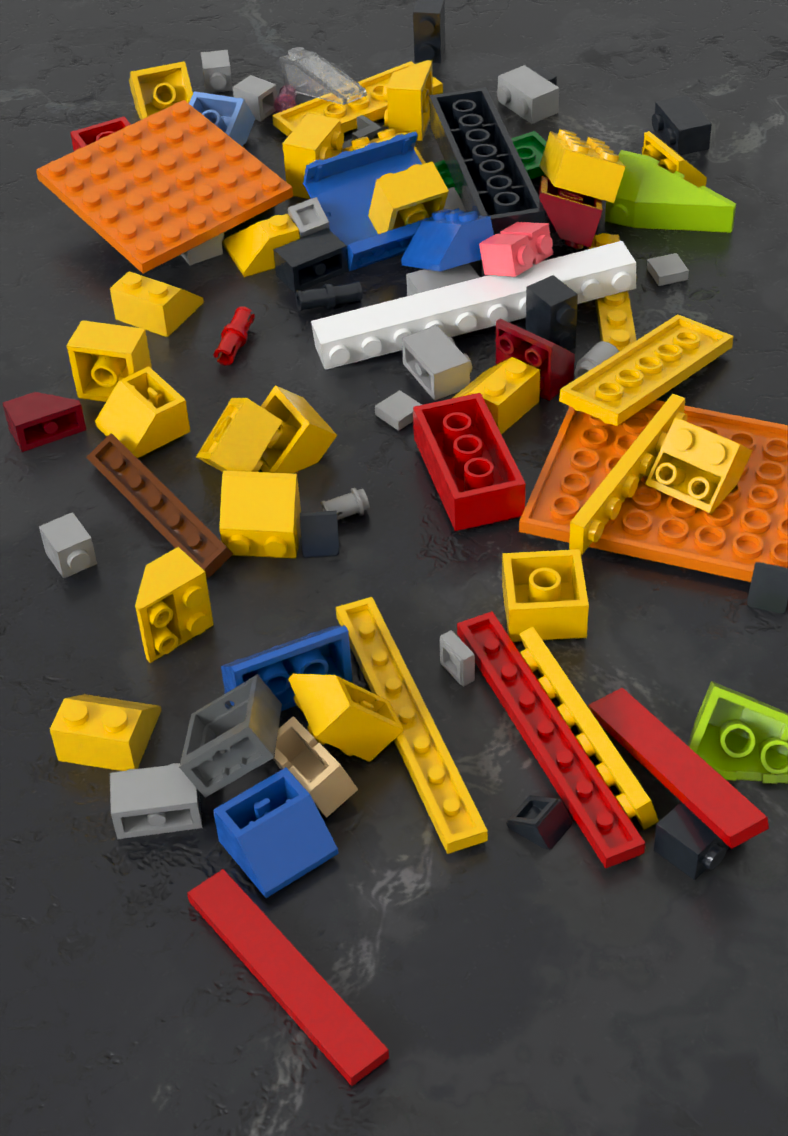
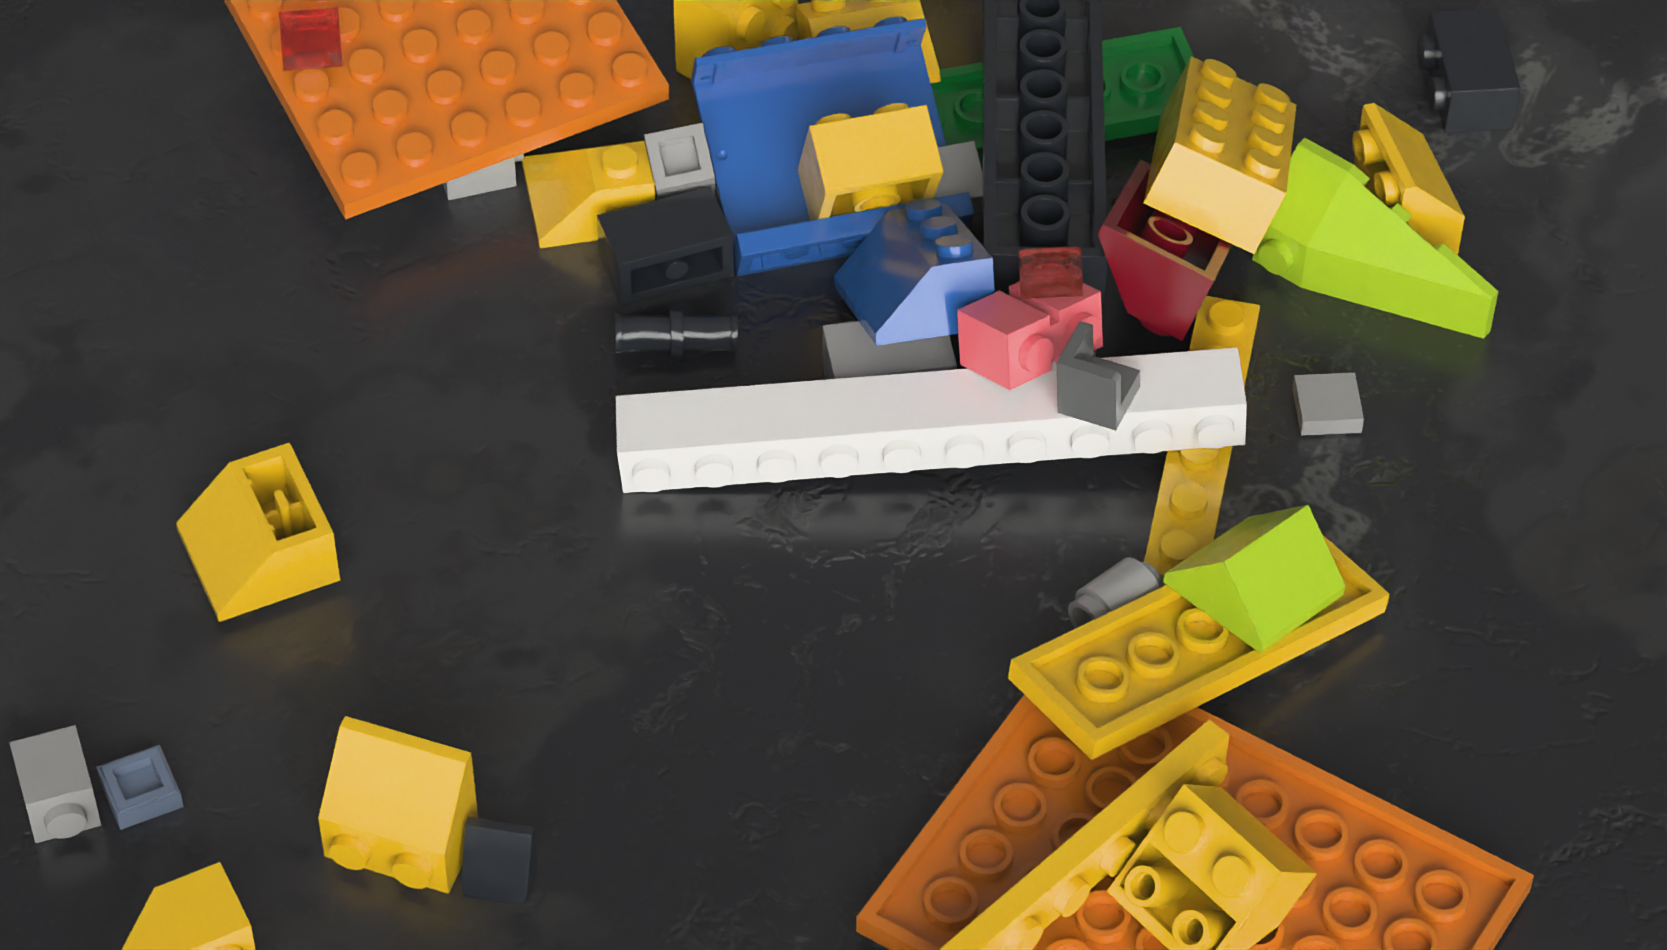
camera: 10 degrees right, 5 degrees up
(43, 419) = (83, 501): dark red slope -> none
(103, 192) = (310, 39): none -> clear red tile
(104, 355) = (225, 403): yellow brick -> none
(114, 541) = (139, 787): none -> sand blue tile
(152, 303) = (353, 280): yellow slope -> none
(159, 505) = (236, 736): reddish brown plate -> none
(234, 336) = (476, 387): red pin -> none
(240, 437) = (410, 633): yellow slope -> none
(302, 436) = (502, 632): yellow slope -> none
(348, 504) = (564, 807): light grey pin -> none
(396, 410) = (725, 617): light grey tile -> none
(436, 362) = (824, 530): light grey brick -> none
(469, 461) = (805, 769): red brick -> none
(508, 391) = (909, 630): yellow slope -> none
(520, 220) = (1050, 272): none -> clear red tile
(552, 311) = (1057, 483): black brick -> none
(552, 360) = (995, 569): dark red slope -> none
(558, 262) = (1092, 386): none -> dark grey panel
(671, 334) = (1262, 576): none -> lime slope

